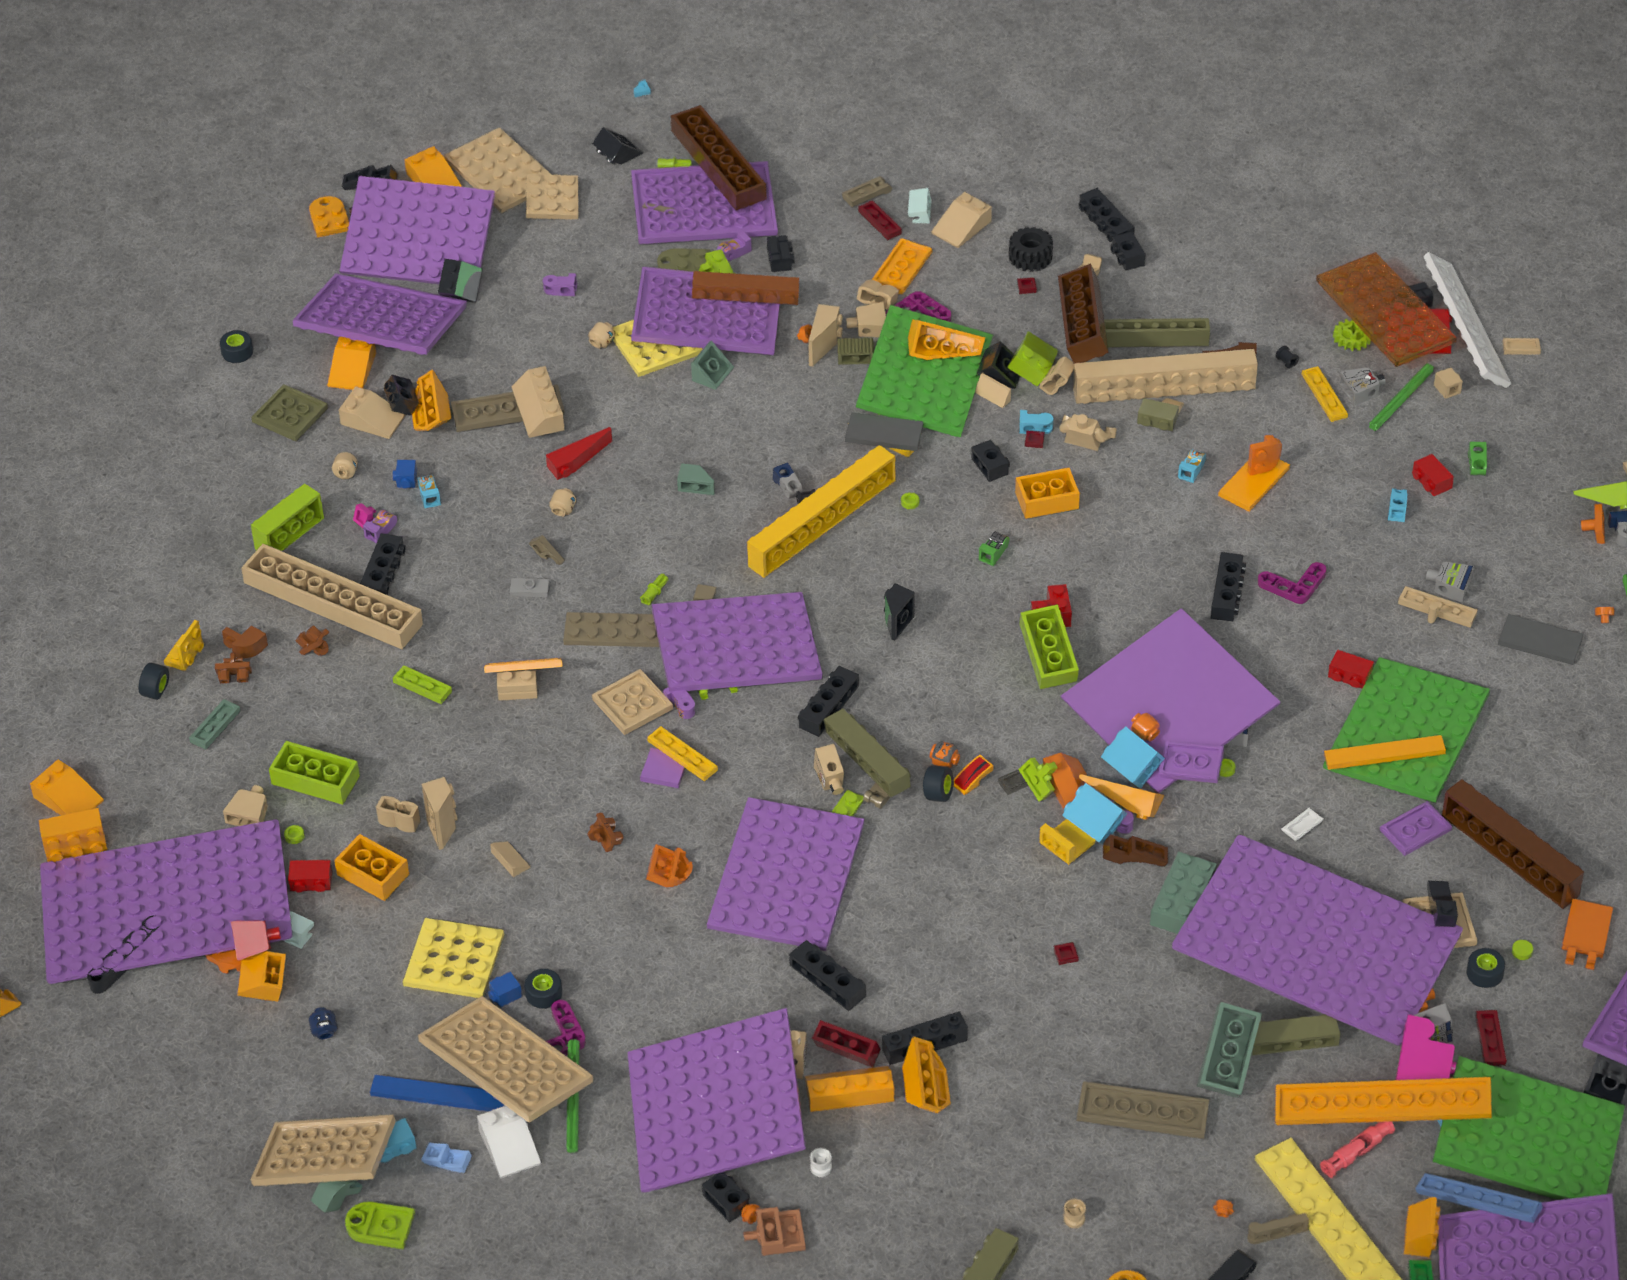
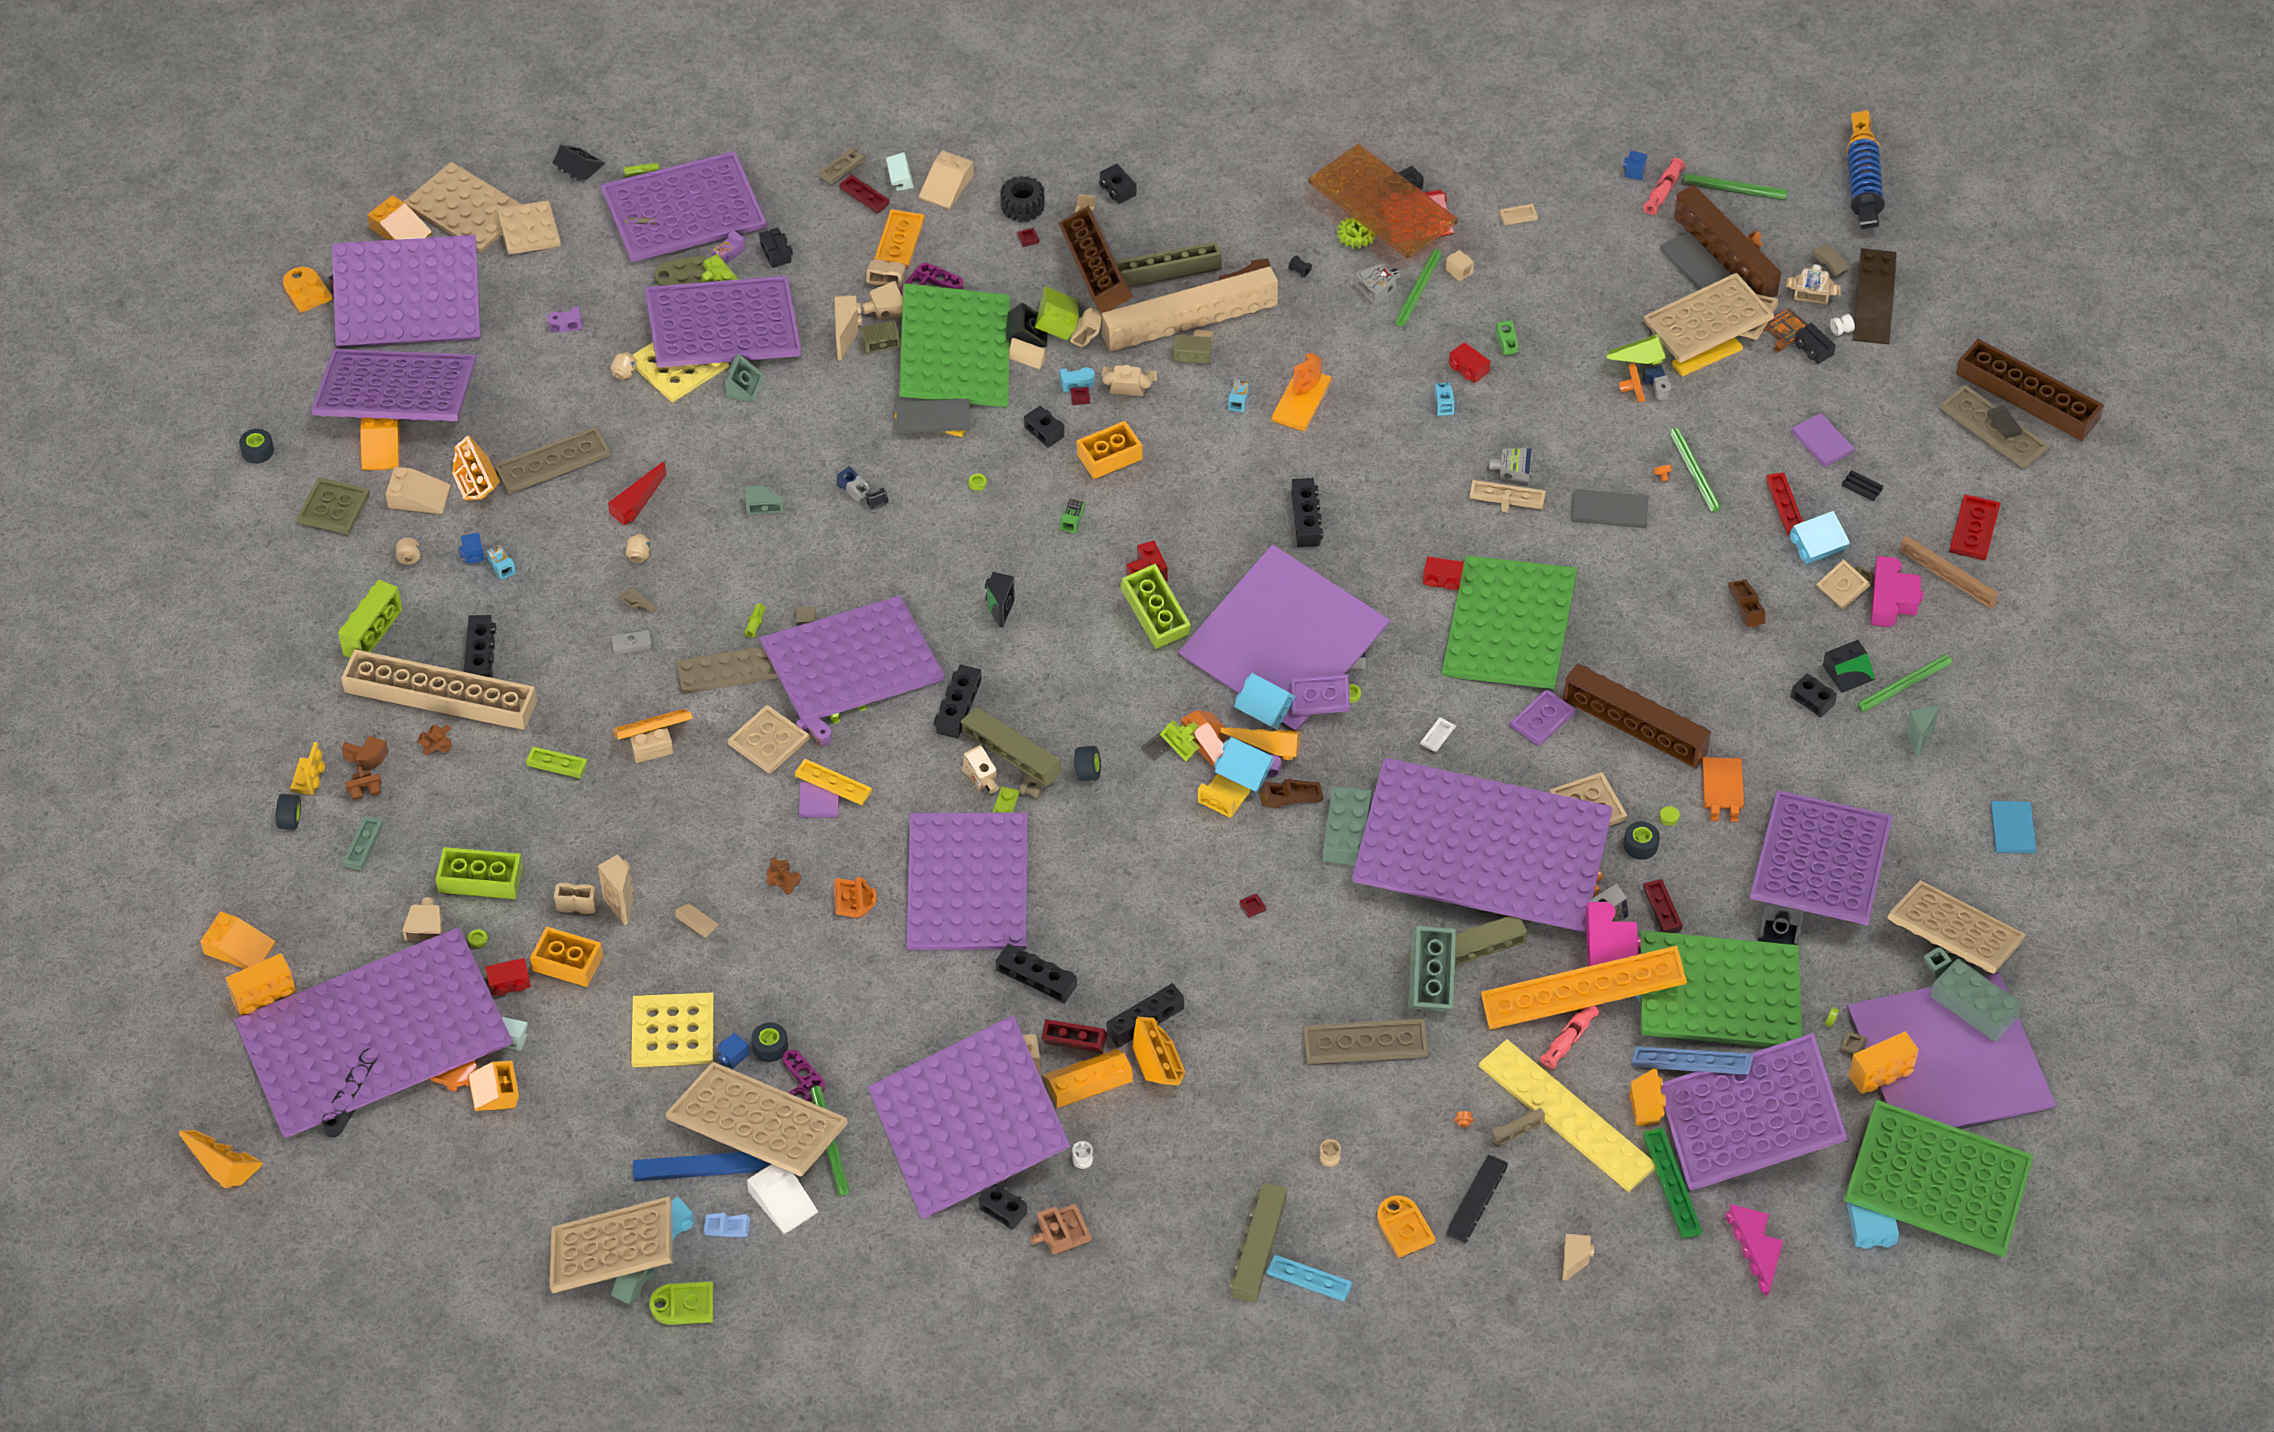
camera: 15 degrees left, 5 degrees up
(252, 937) = (476, 1051): torso -> none
(323, 1023) = (567, 1120): dark blue head -> none
(351, 179) = (323, 242): black slope -> none
(363, 514) = (443, 600): dark pink tile -> none
(381, 524) = (463, 607): medium lavender leg -> none
(401, 395) = (442, 466): black brick -> none
(460, 280) = (464, 334): black slope -> none
(538, 403) = (584, 450): tan slope -> none
(641, 89) = (583, 94): medium azure tile -> none
(718, 157) = (687, 157): reddish brown brick -> none
(745, 287) = (754, 291): dark orange brick -> none
(749, 1213) = (1030, 1217): orange plate -> none
(804, 333) = (827, 327): orange tile -> none
(821, 511) = (896, 510): yellow brick -> none
(936, 342) = (963, 314): light orange wedge -> none
(944, 754) = (1084, 733): orange head -> none
(972, 774) = (1116, 747): slope -> none
(1104, 214) = (1084, 149): black brick -> none
(1145, 726) = (1268, 668): orange head -> none
(1299, 587) = (1373, 500): magenta beam -> none
(1324, 394) = (1345, 297): yellow tile -> none
(1384, 752) = (1497, 649): light orange tile -> none
(1441, 904) = (1587, 787): black slope -> none
(1467, 320) = (1461, 197): white plate -> none

